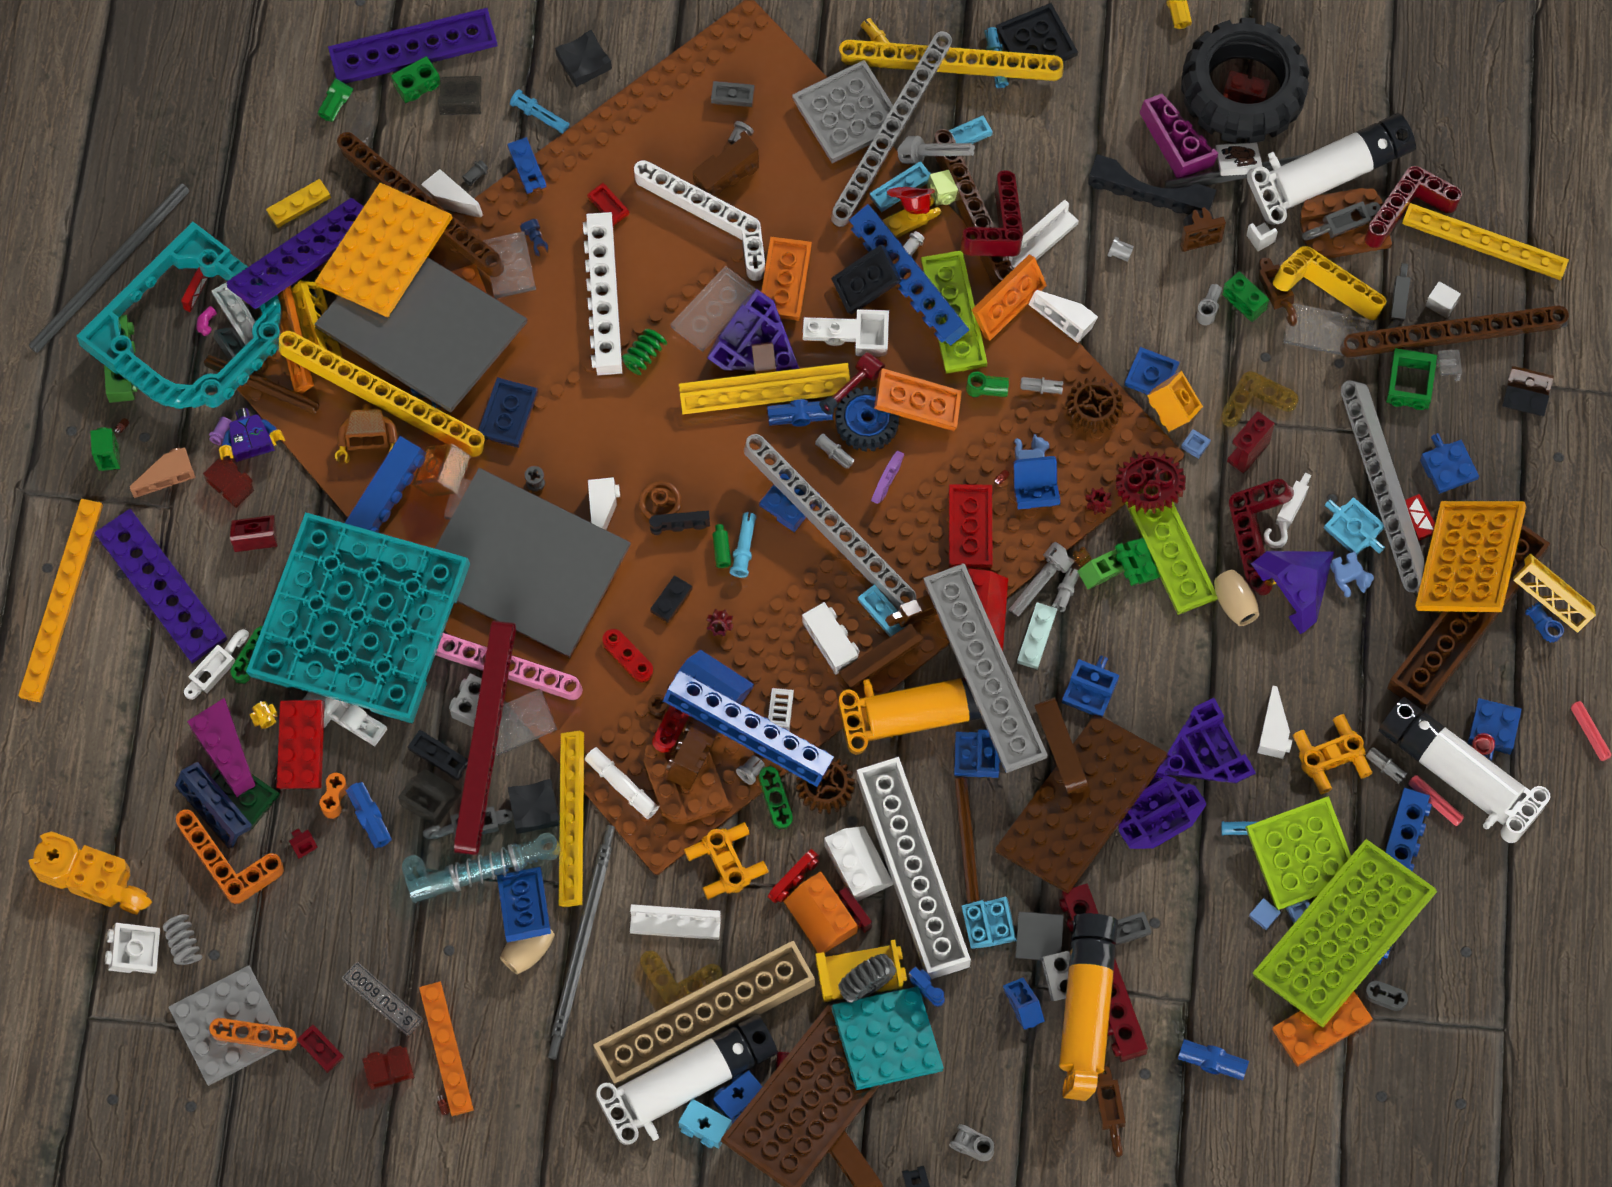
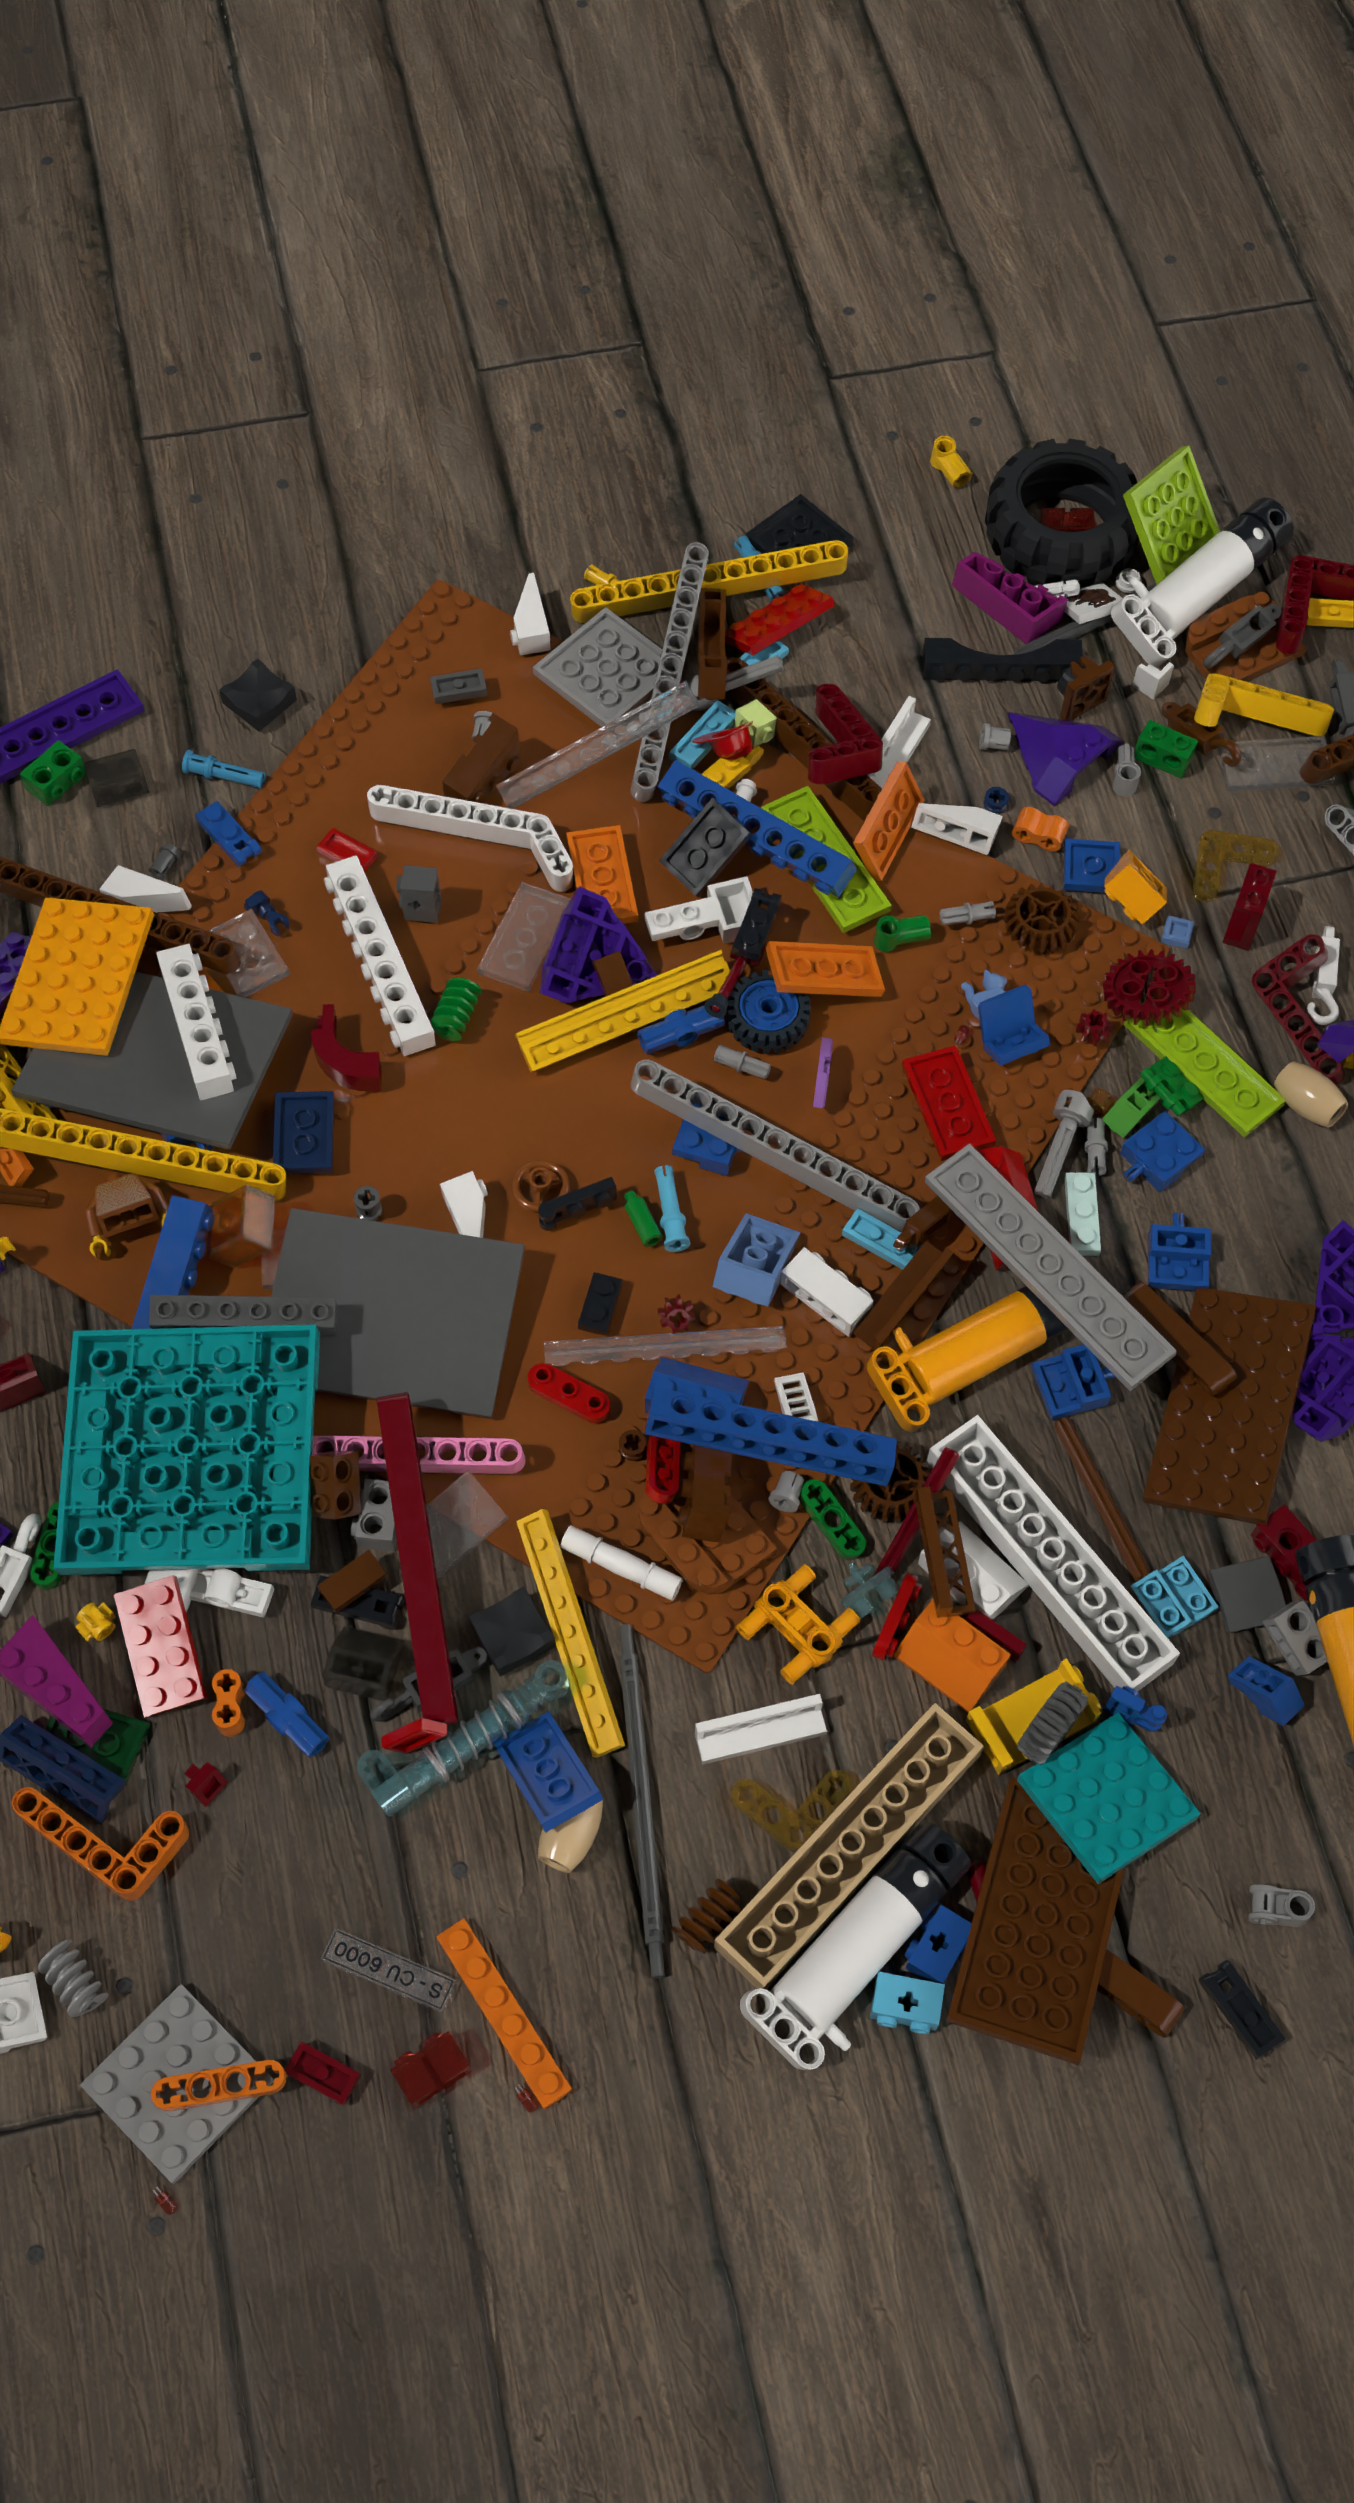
camera: 20 degrees left, 5 degrees down
(200, 1094) = (165, 2201): none -> clear red piece
(422, 533) = (234, 1311): none -> dark grey brick
(439, 740) = (352, 1581): none -> reddish brown tile
(445, 854) = (414, 1735): none -> red tile
(447, 671) = (335, 1484): none -> reddish brown brick
(454, 262) = (195, 1022): none -> white brick
(555, 375) = (347, 1068): none -> dark red arch
(597, 1030) = (708, 1916): none -> reddish brown piece
(646, 256) = (419, 893): none -> dark grey brick
(697, 640) = (675, 1345): none -> clear plate
(788, 599) = (755, 1259): none -> medium blue slope
(790, 850) = (881, 1582): none -> clear light blue hips
(803, 54) = (530, 624): none -> white slope
(815, 175) = (597, 745): none -> clear plate
(829, 837) = (934, 1552): none -> reddish brown fence
(830, 813) = (911, 1523): none -> dark red axle
(879, 352) = (756, 925): none -> black plate
(923, 132) = (711, 644): none -> reddish brown arch
(993, 105) = (778, 619): none -> red plate
(1102, 293) = (1003, 797): none -> dark blue bush
(1110, 607) = (1160, 1152): none -> blue plate
(1125, 333) = (1040, 829): none -> orange axle
(1167, 272) = (1059, 751): none -> dark purple wedge
(1217, 141) = (1056, 589): none -> white axle
(1281, 143) = (1123, 579): none -> white plate
(1324, 106) = (1171, 513): none -> lime plate

